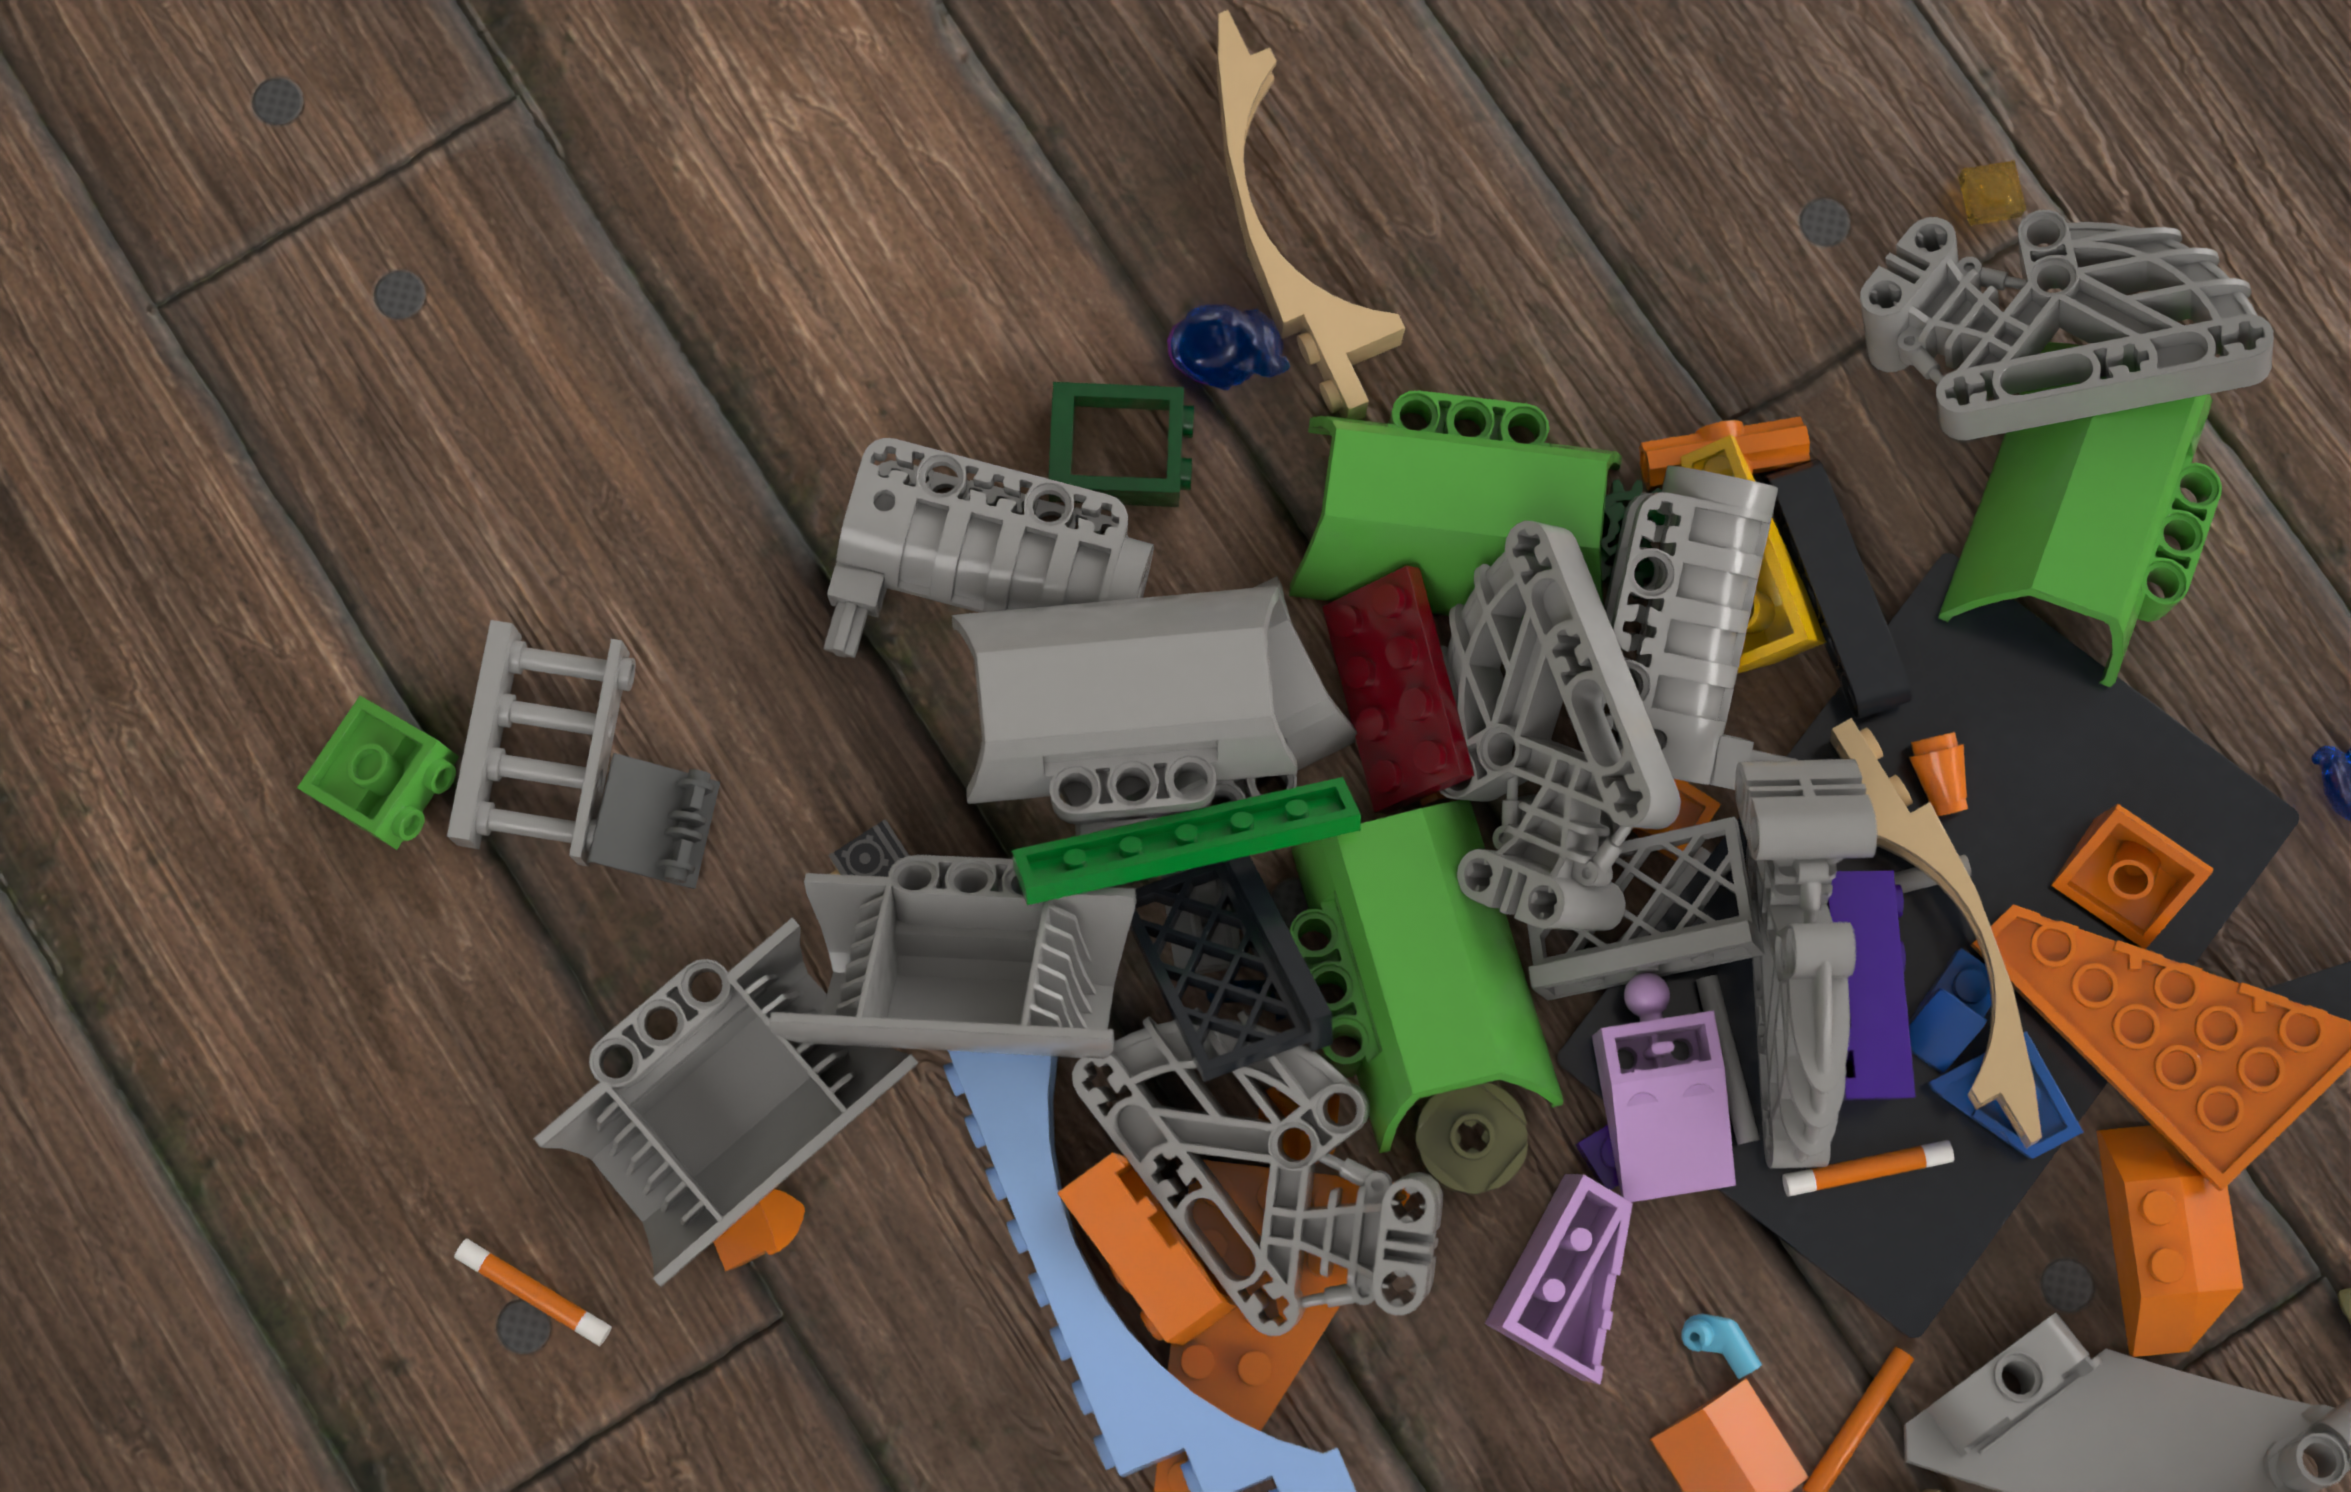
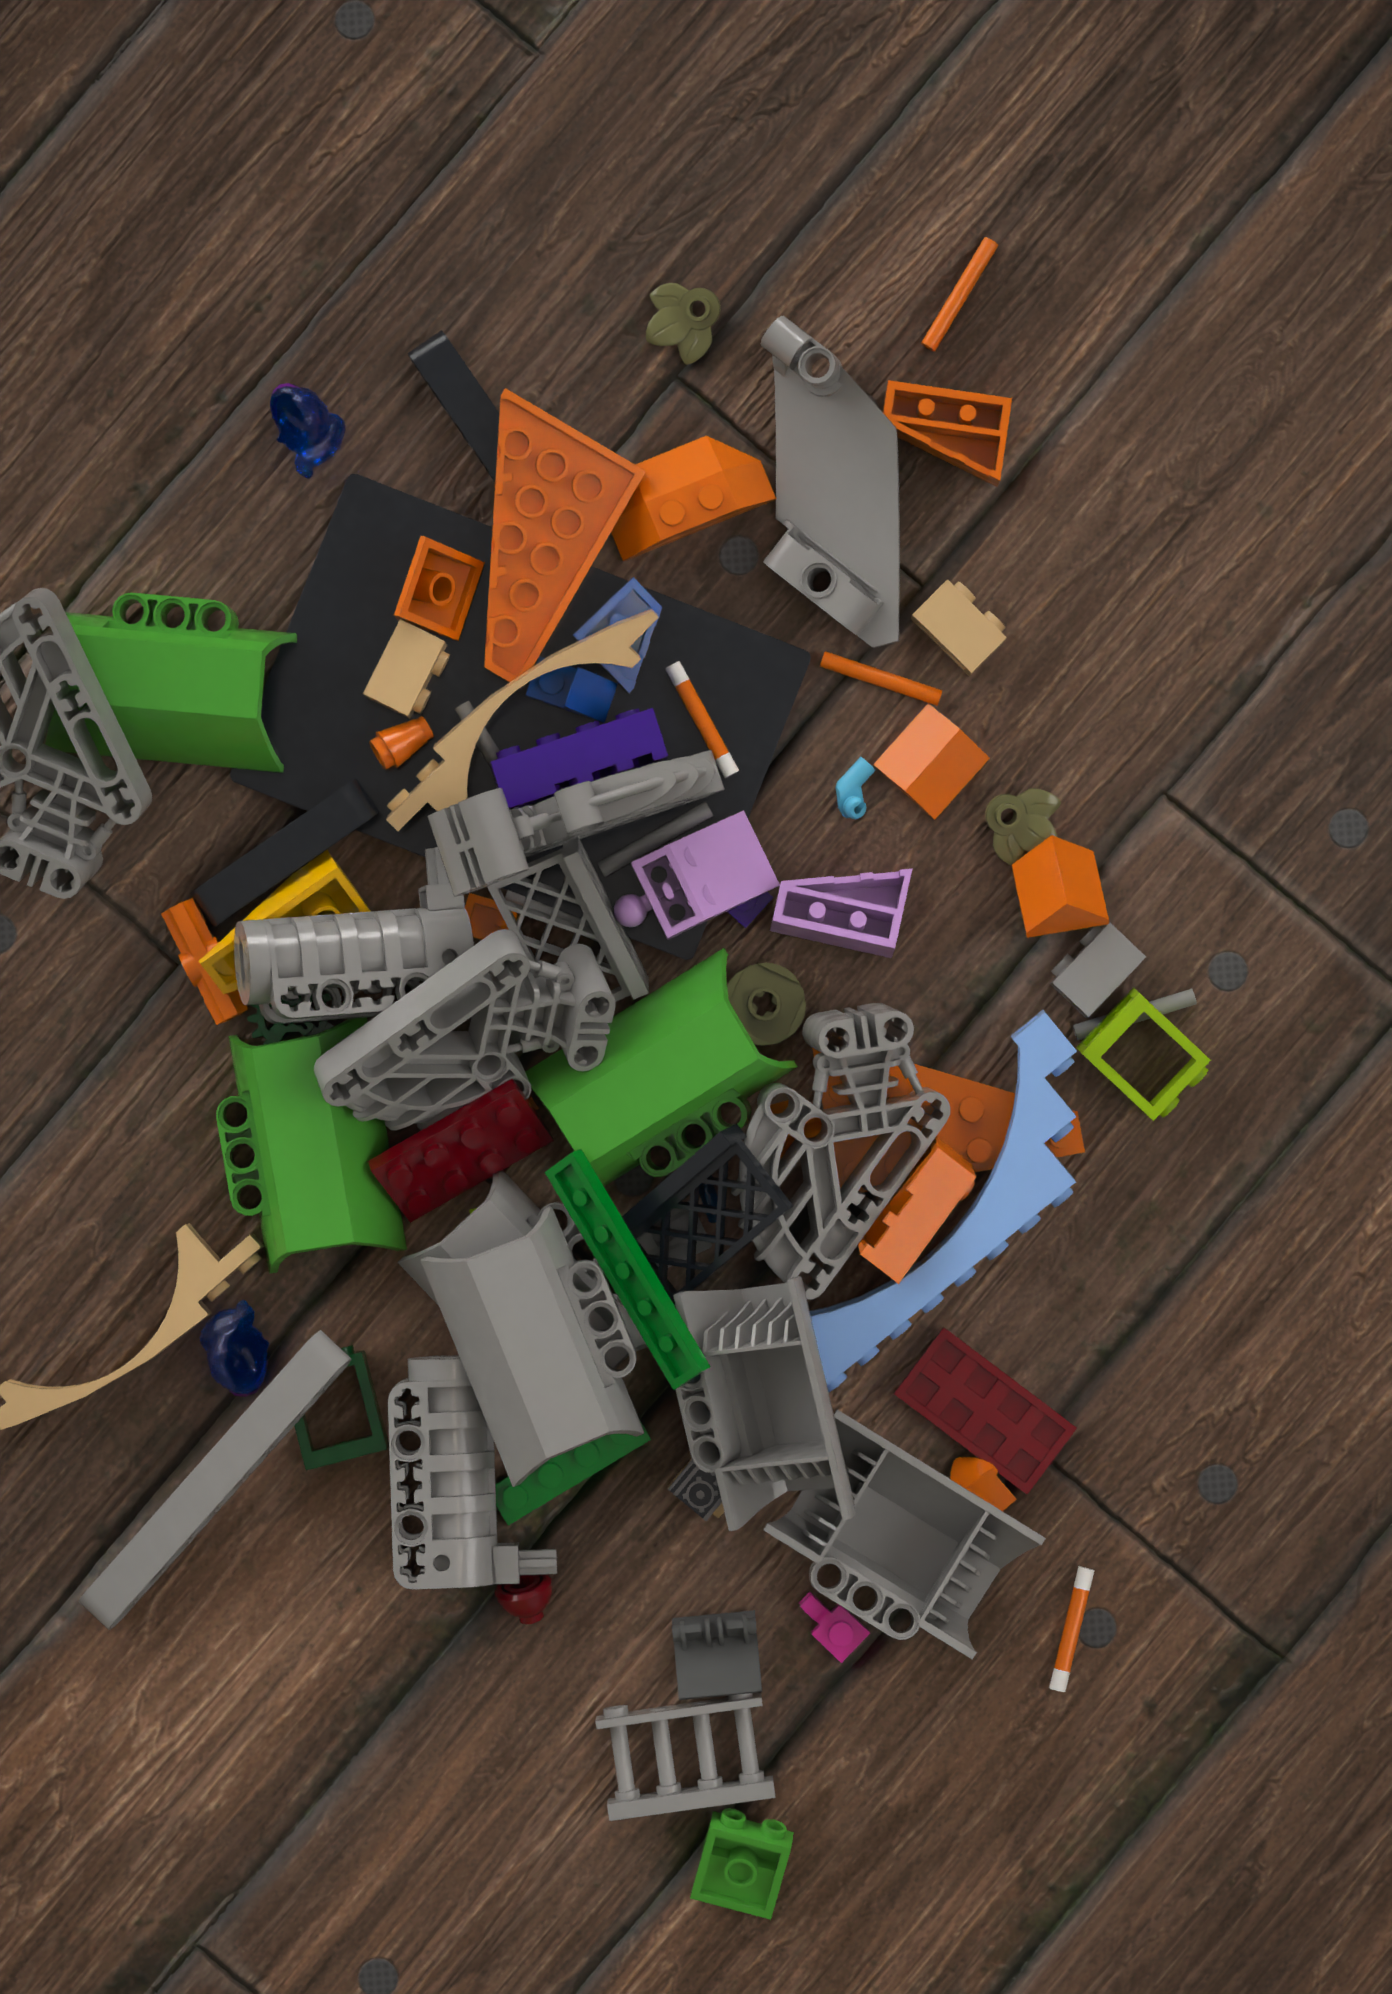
camera: 100 degrees left, 10 degrees up
(635, 979) = (836, 1628): none -> dark pink plate
(805, 605) = (527, 1598): none -> dark red brick
(853, 1265) = (985, 1410): none -> dark red plate
(952, 705) = (563, 1473): none -> green plate
(1079, 273) = (215, 1479): none -> light grey beam
(2034, 806) = (406, 670): none -> tan brick

